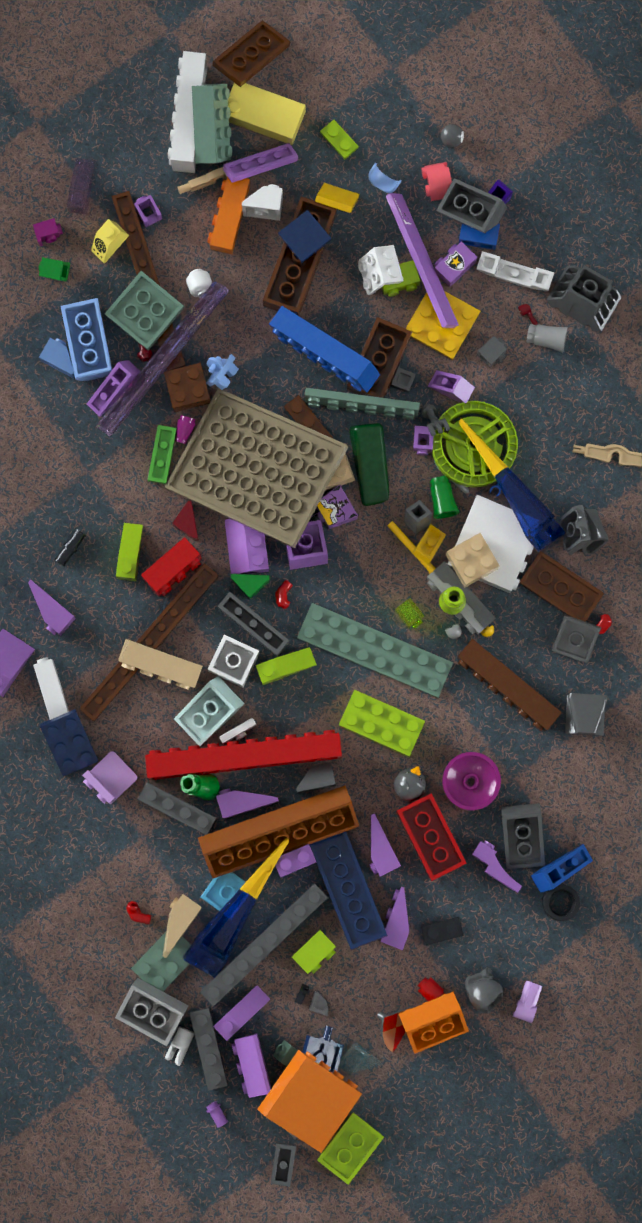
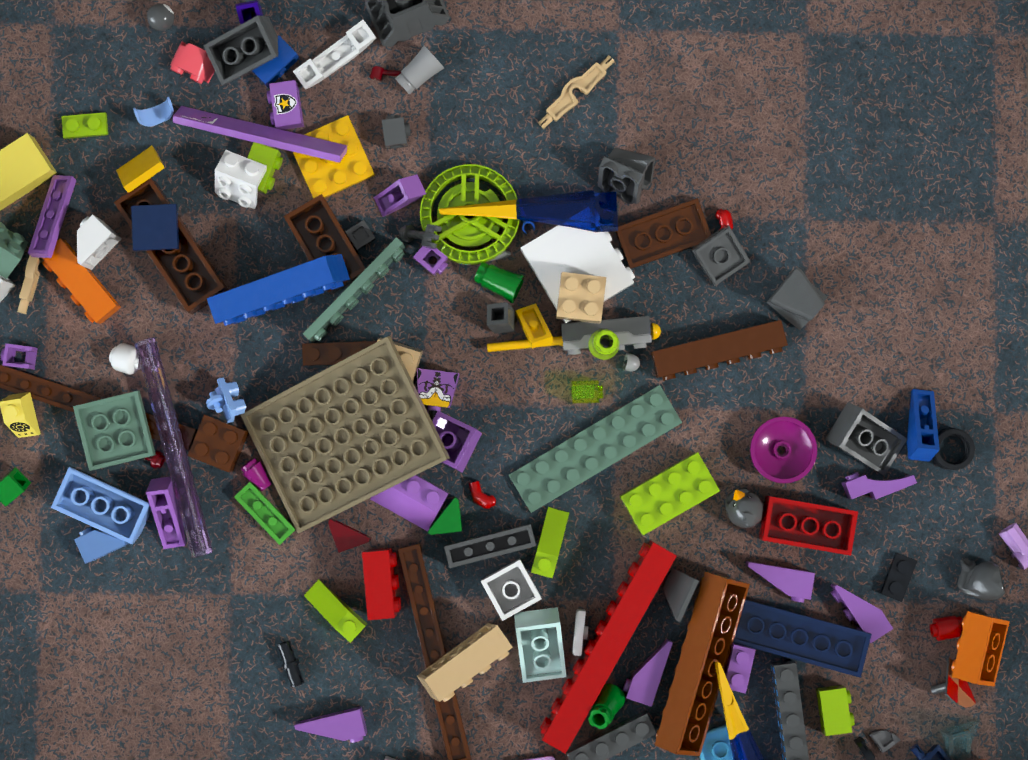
camera: 55 degrees left, 5 degrees up
(370, 462) = (416, 323): dark green piece -> none

